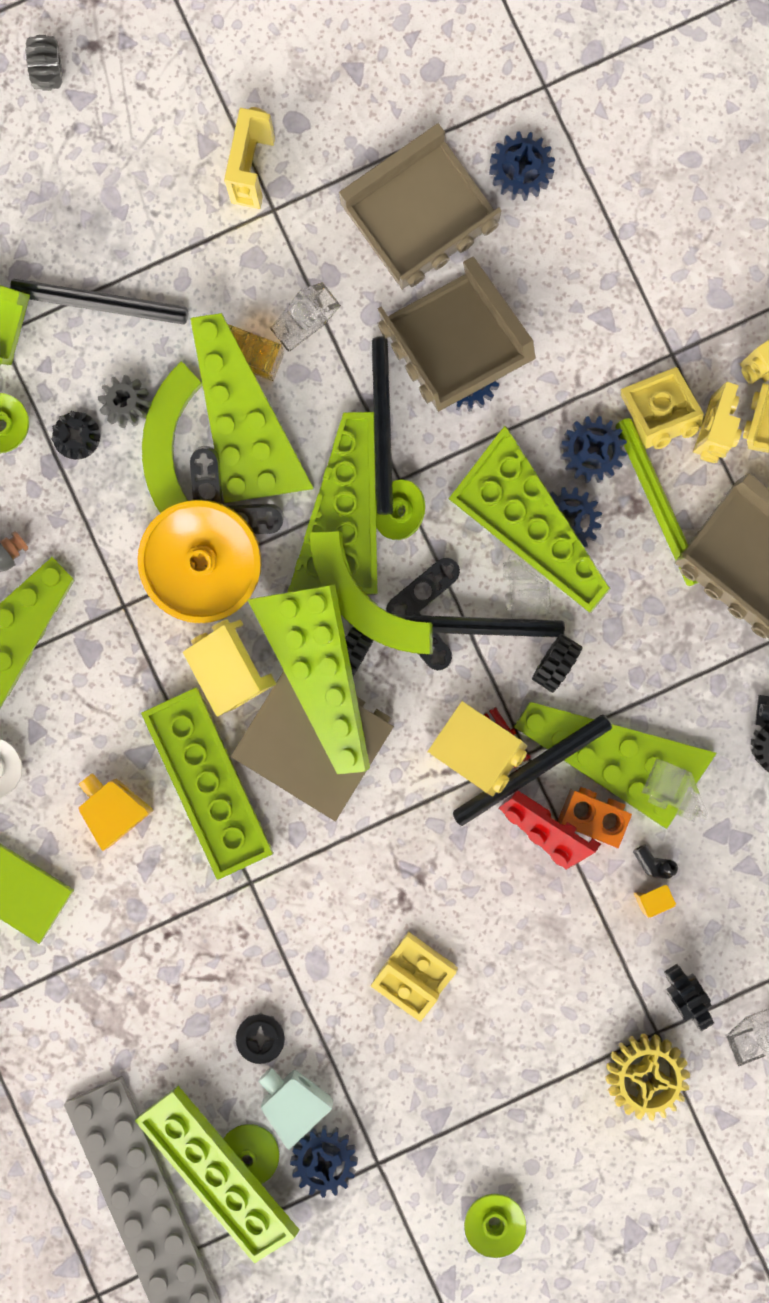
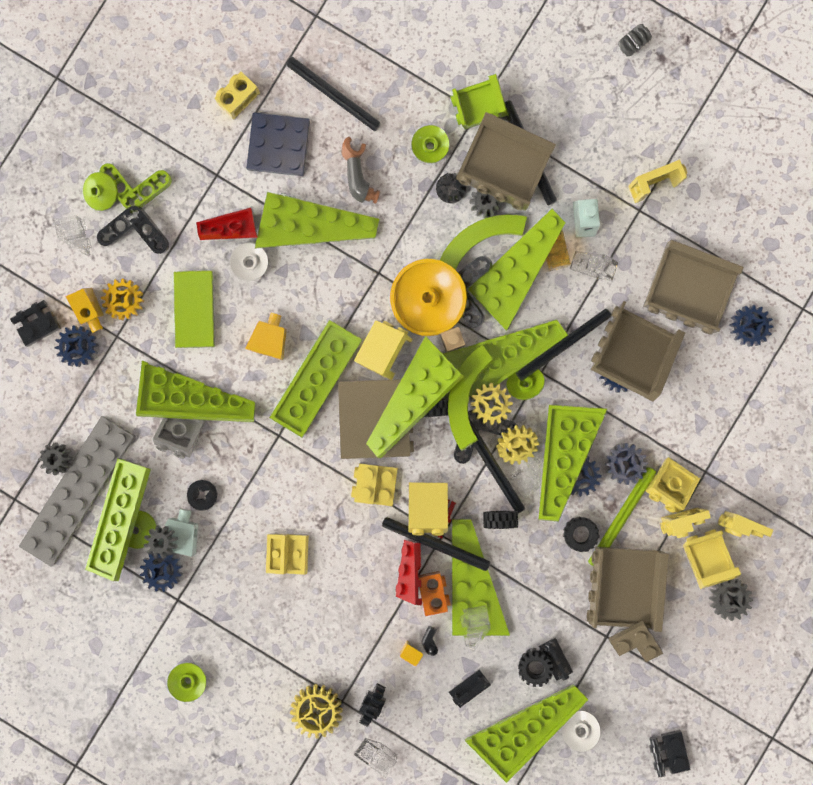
camera: 60 degrees right, 0 degrees up
(73, 1215) = (55, 451): none -> dark grey gear
(88, 338) = (505, 162): none -> dark tan panel
(110, 980) = (181, 397): none -> lime wing
(155, 1015) = (178, 436): none -> light grey plate
(232, 283) = (586, 216): none -> light aqua torso
(277, 567) = (452, 339): none -> tan brick
(282, 1150) = (168, 543): none -> dark grey gear
(399, 799) = (374, 484): none -> light yellow plate
(408, 565) = (482, 400): none -> light yellow gear
(473, 574) = (517, 444): none -> light yellow gear
(663, 562) = (581, 546): none -> black tyre
(751, 853) = (469, 688): none -> black hinge

